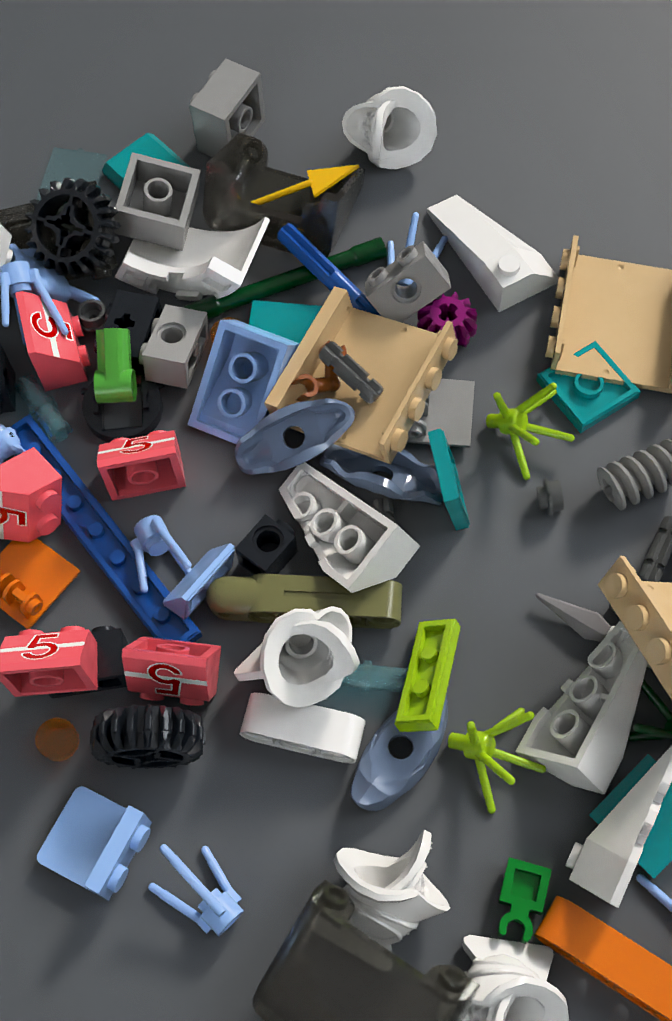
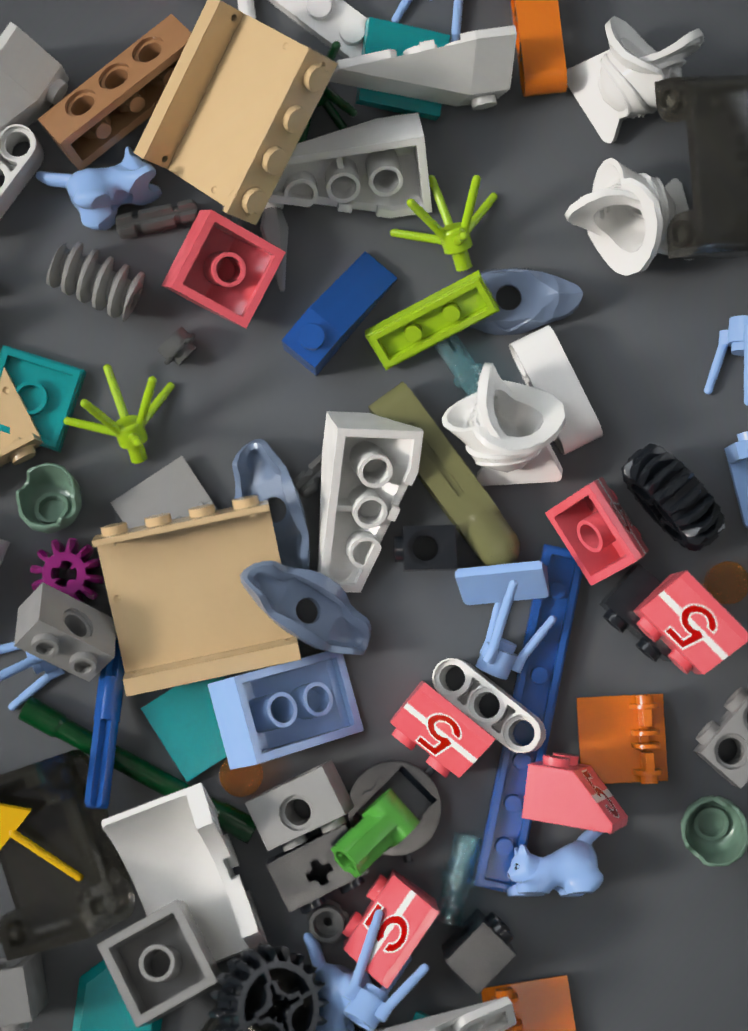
camera: 135 degrees left, 20 degrees up
(107, 499) = (468, 699): none -> white beam
(330, 382) = (224, 621): dark orange arm -> none
(350, 372) = (209, 602): dark grey axle -> none
(449, 479) = (242, 435): teal tile -> none
(489, 618) = (338, 313): none -> blue slope
(506, 343) = (49, 498): none -> sand green hair
(525, 891) = (540, 122): green plate -> none
(578, 557) = (223, 268): none -> coral slope

